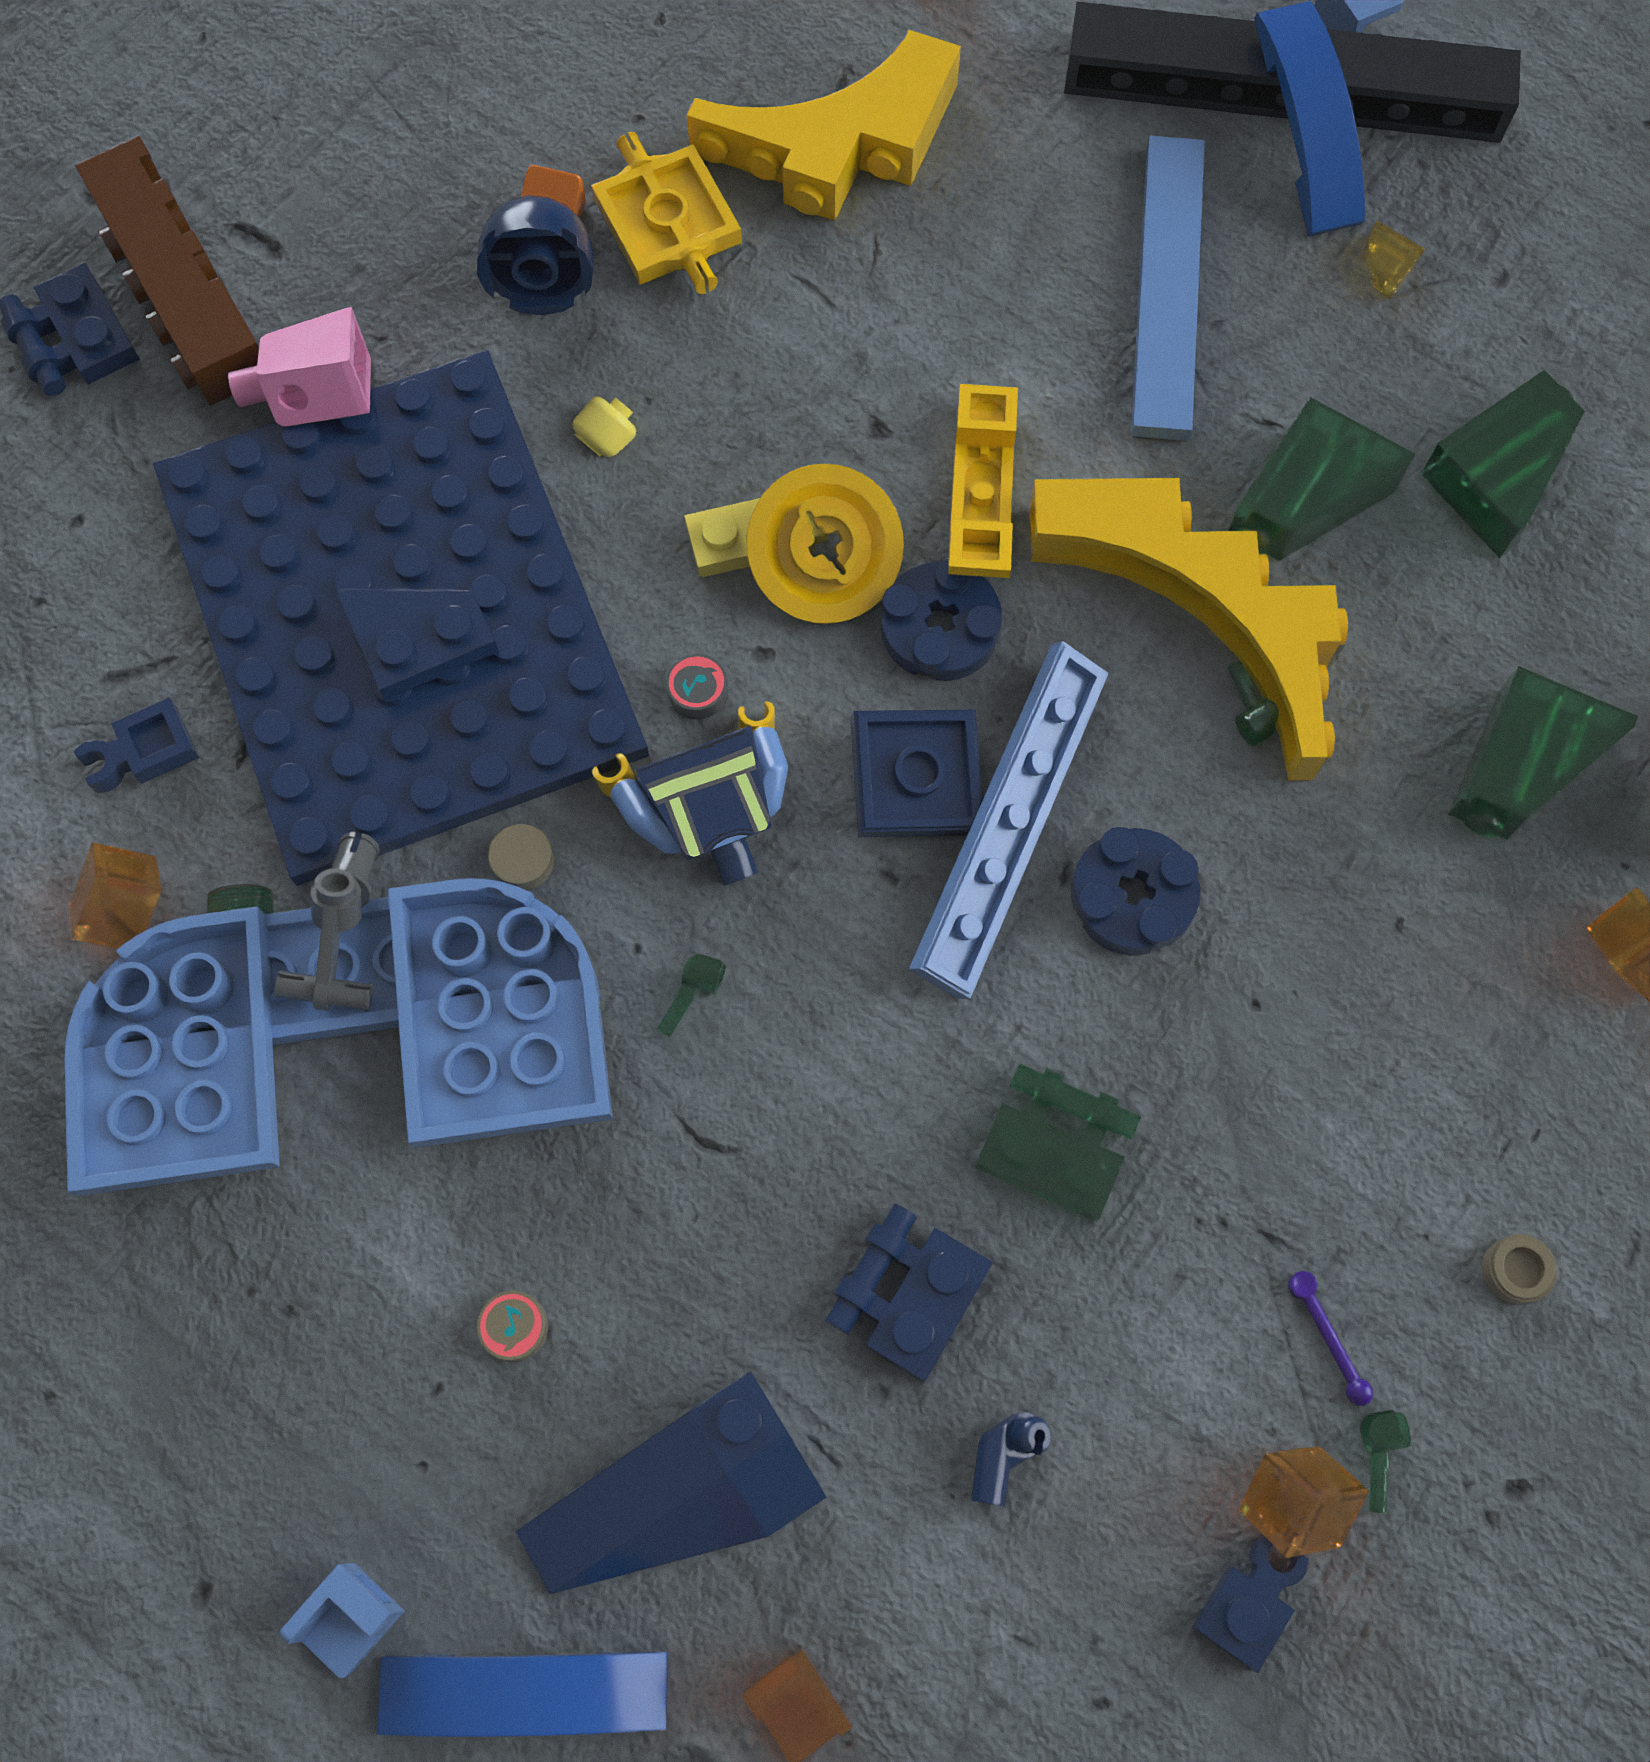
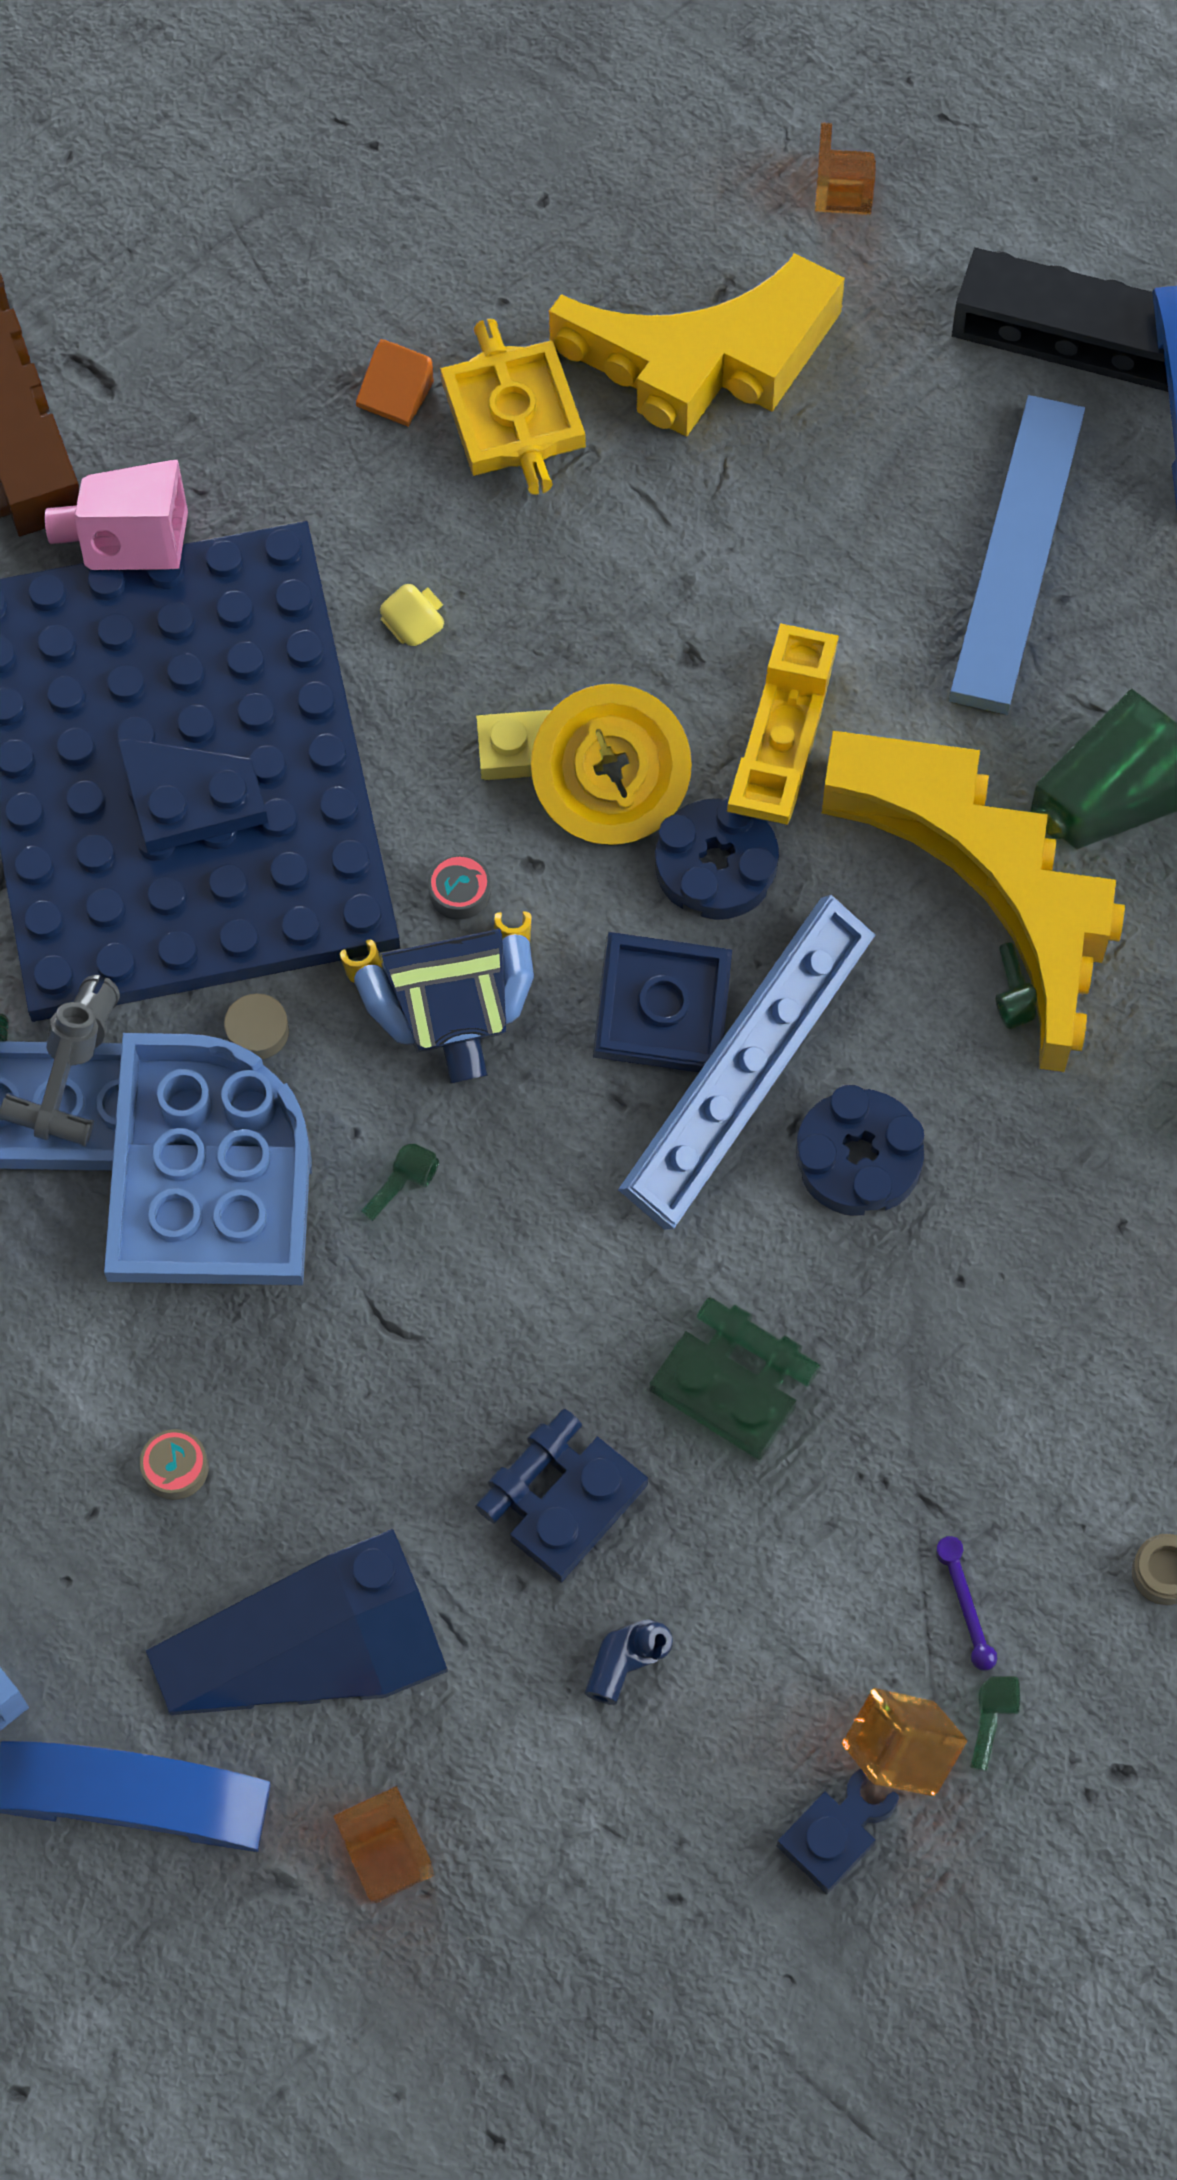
camera: 10 degrees right, 5 degrees down
(535, 255) = (371, 433): dark blue cylinder -> none

